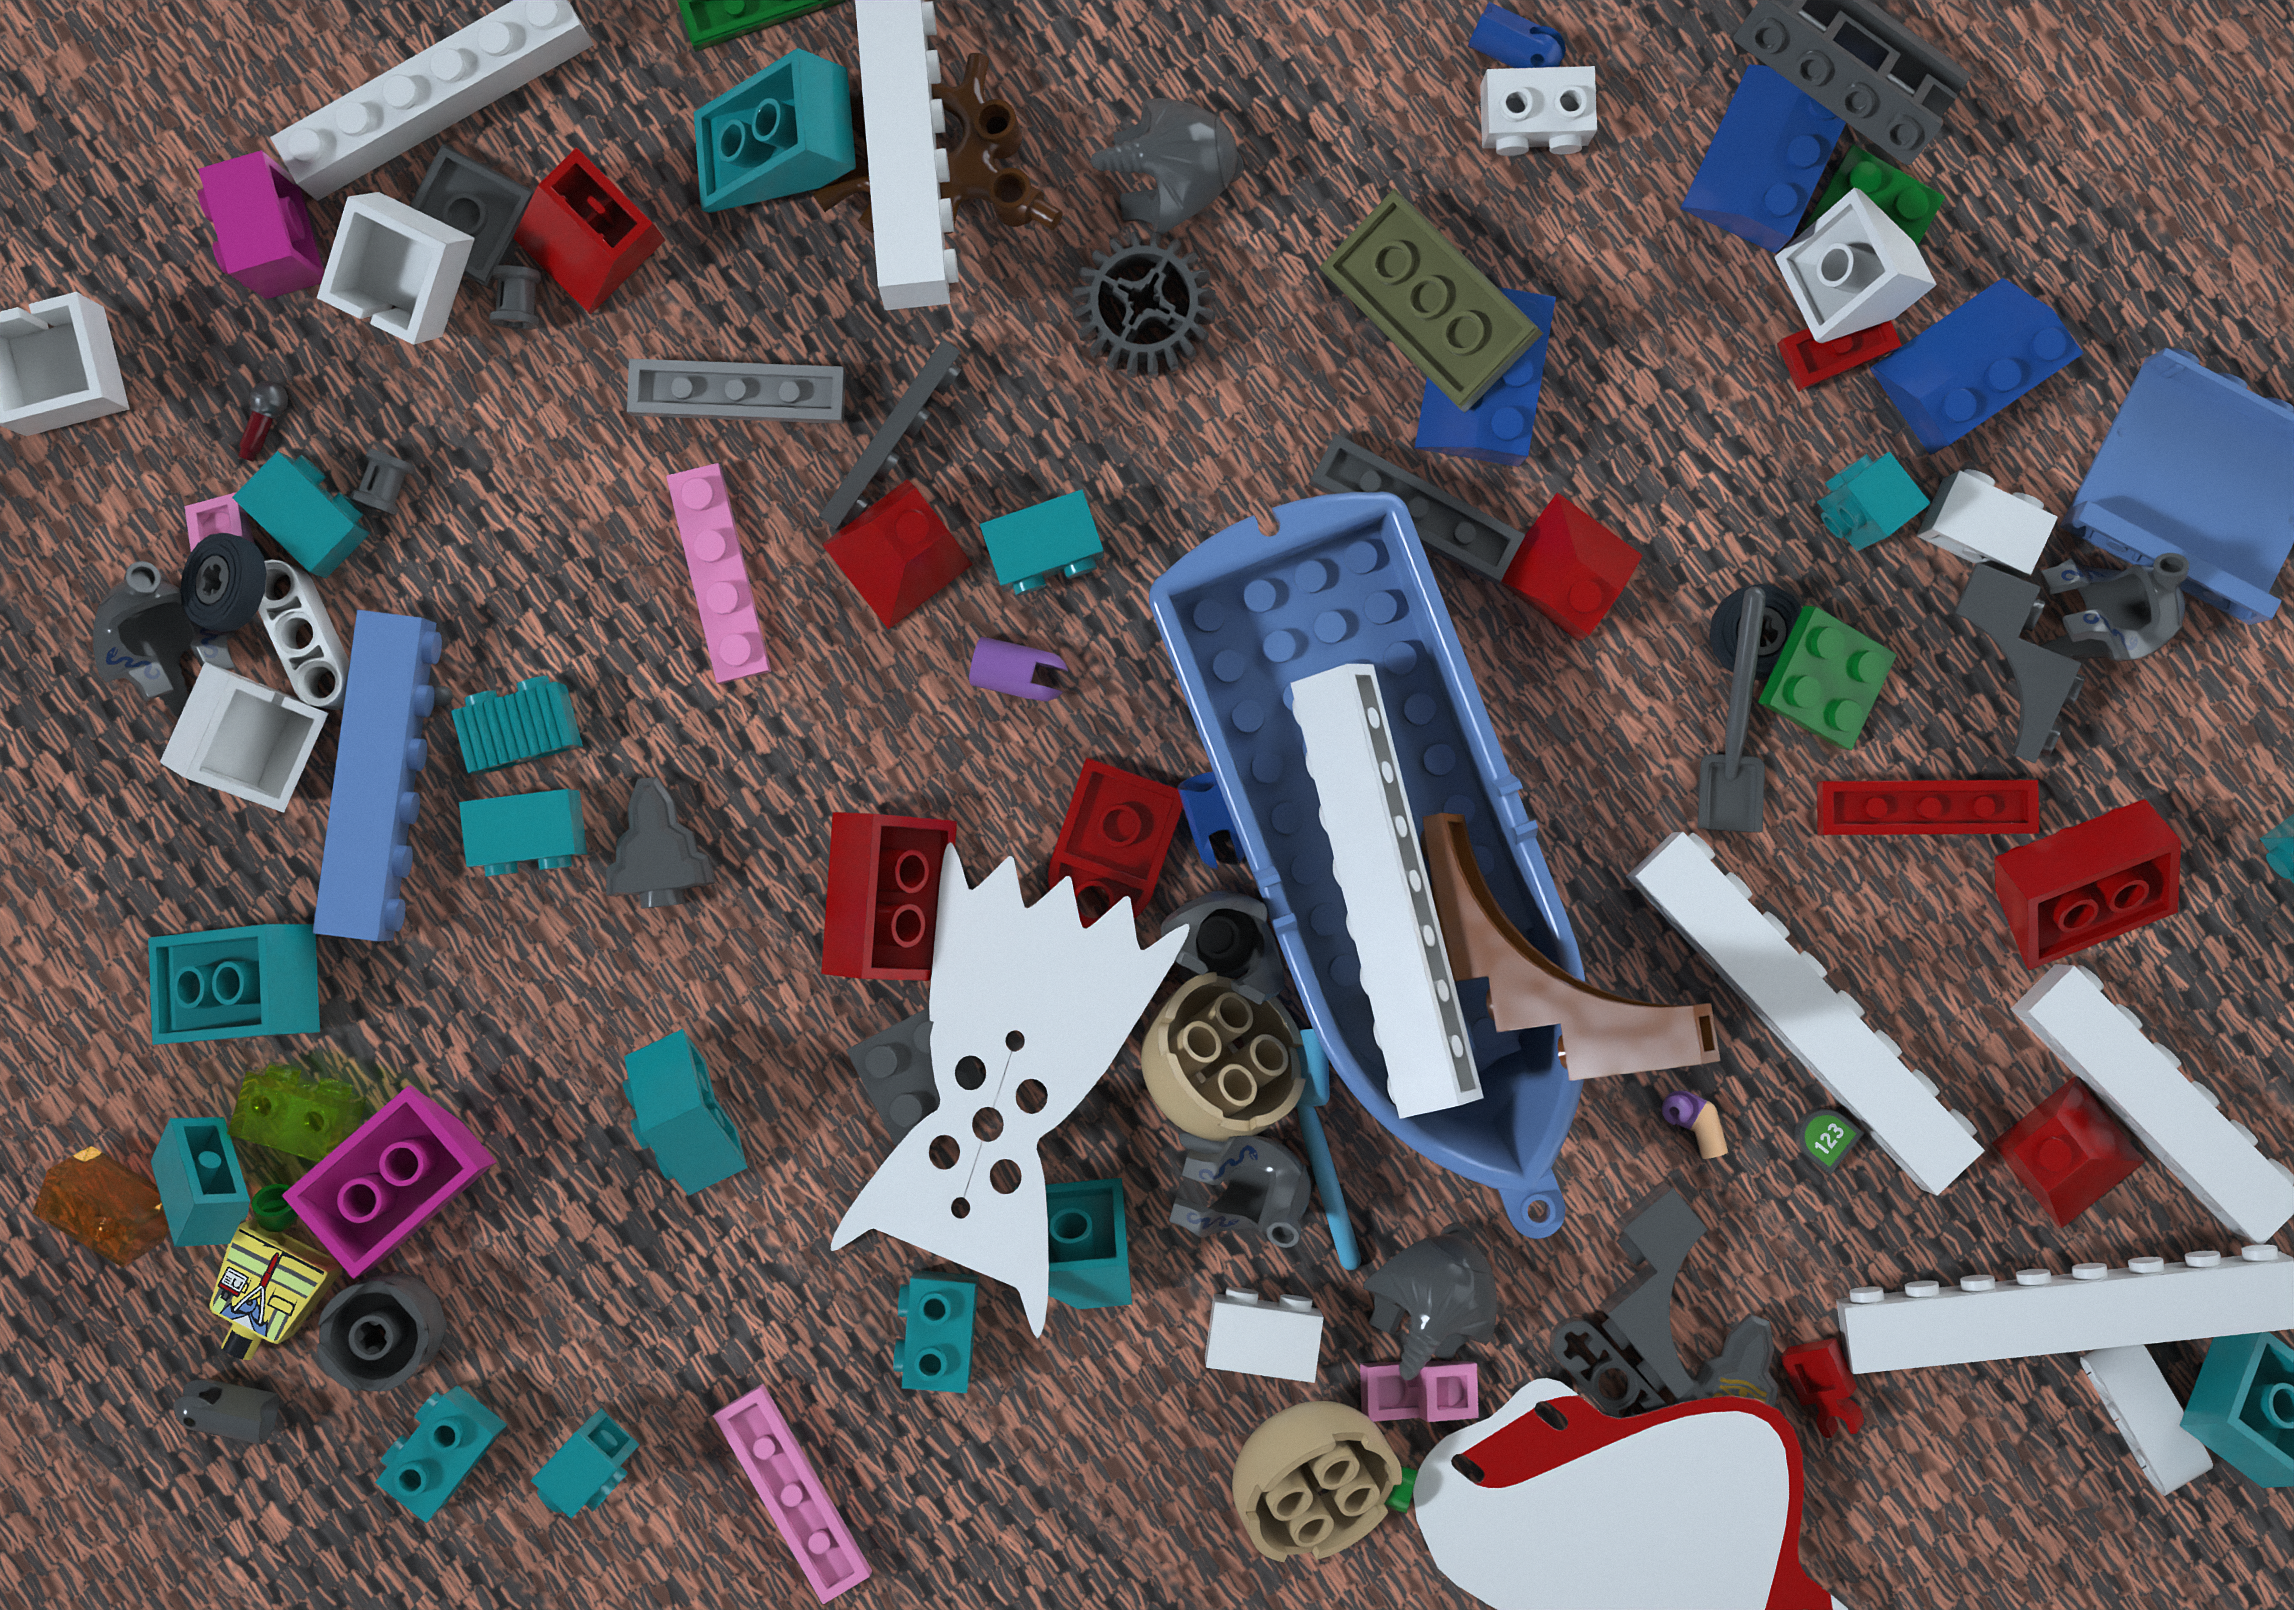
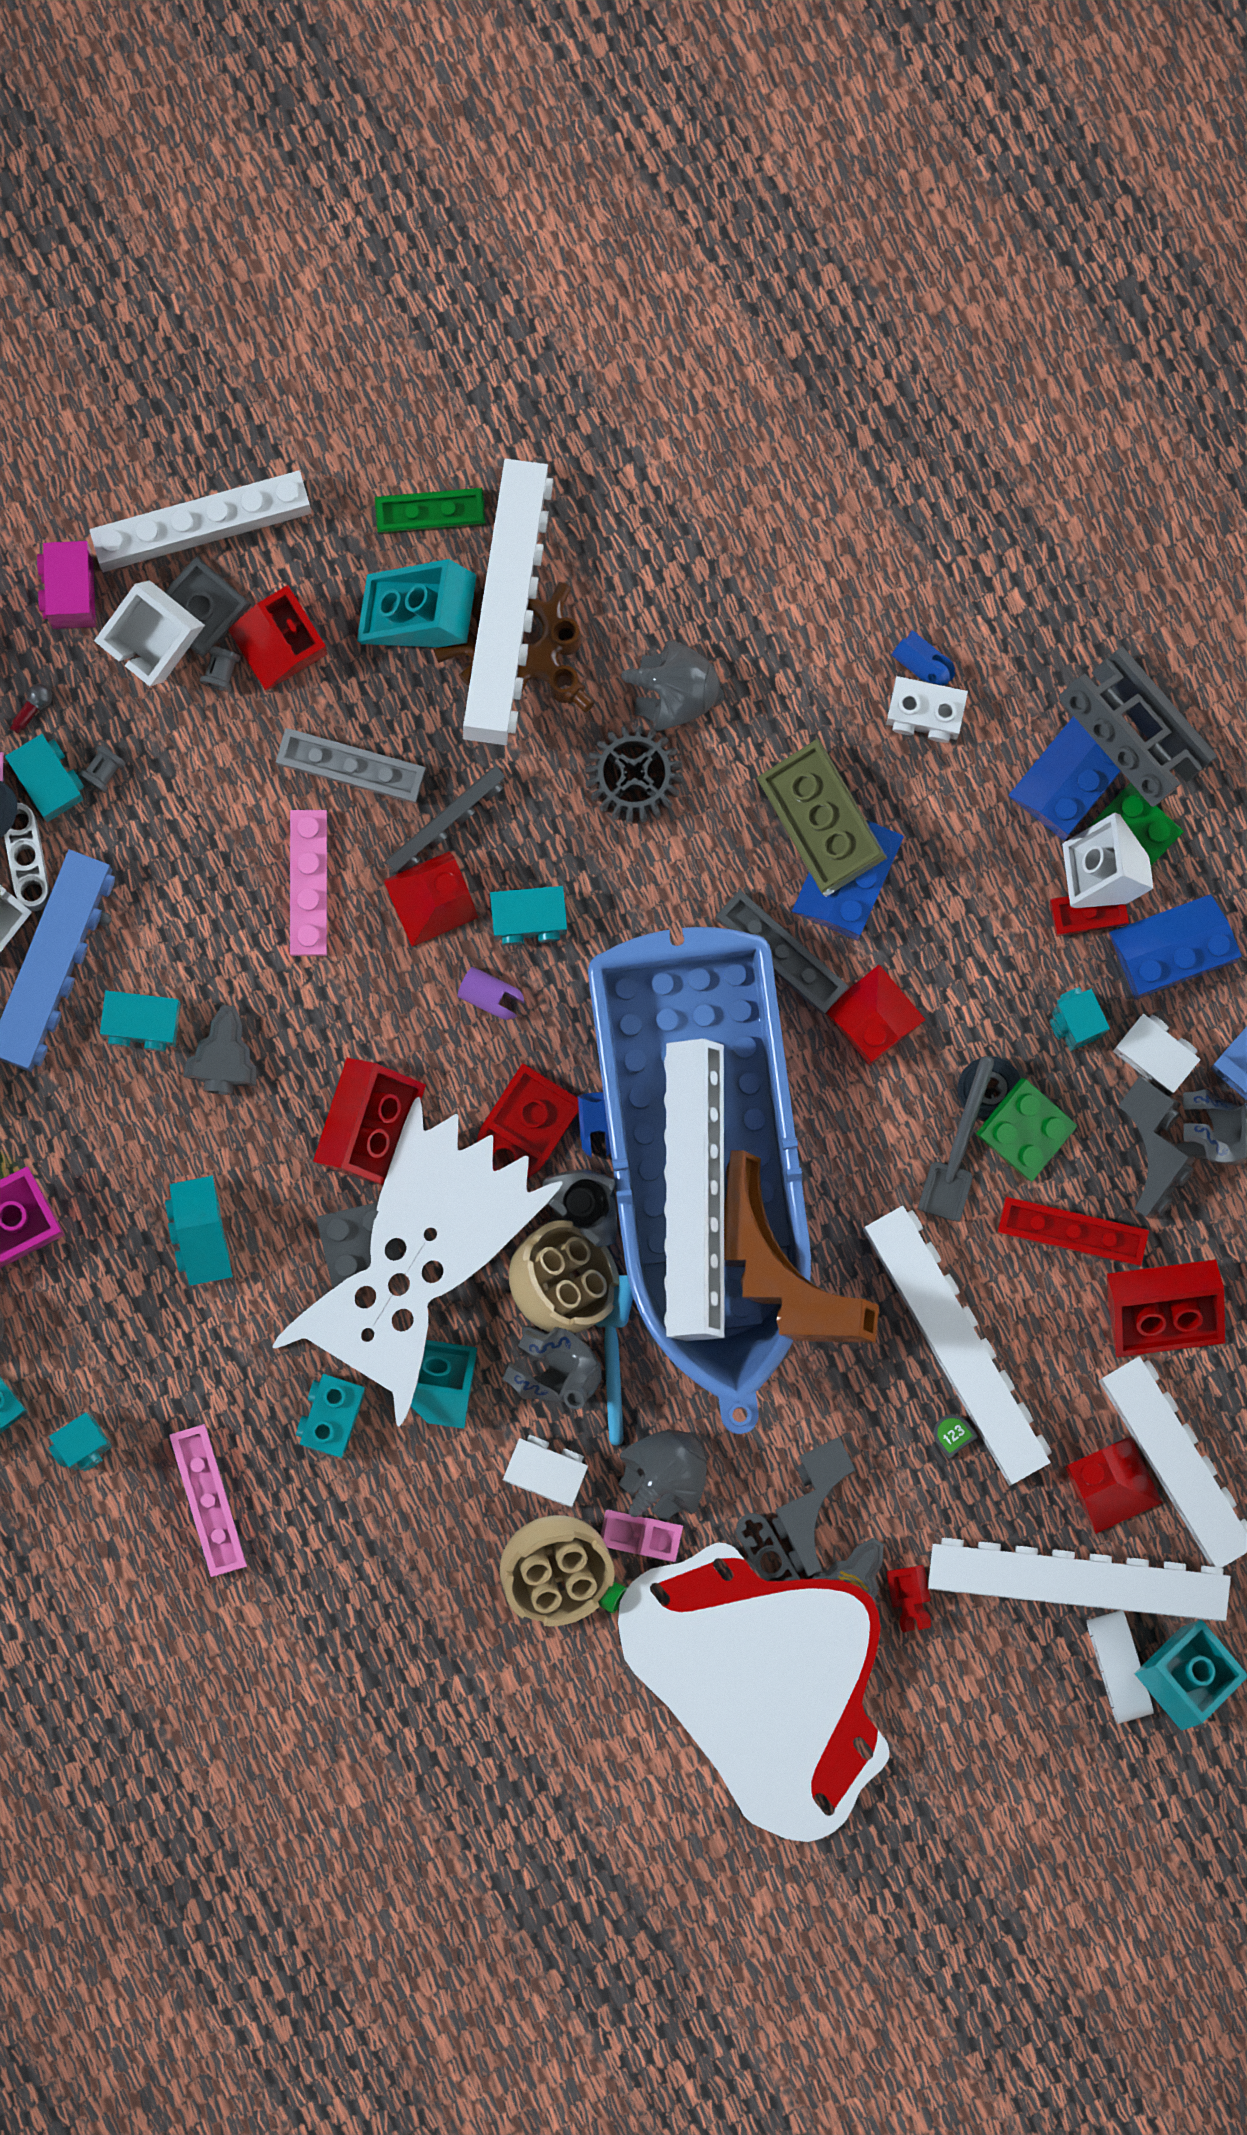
camera: 10 degrees right, 5 degrees down
(516, 726) = (151, 951): teal brick -> none
(1698, 1116) = (869, 1398): arm -> none

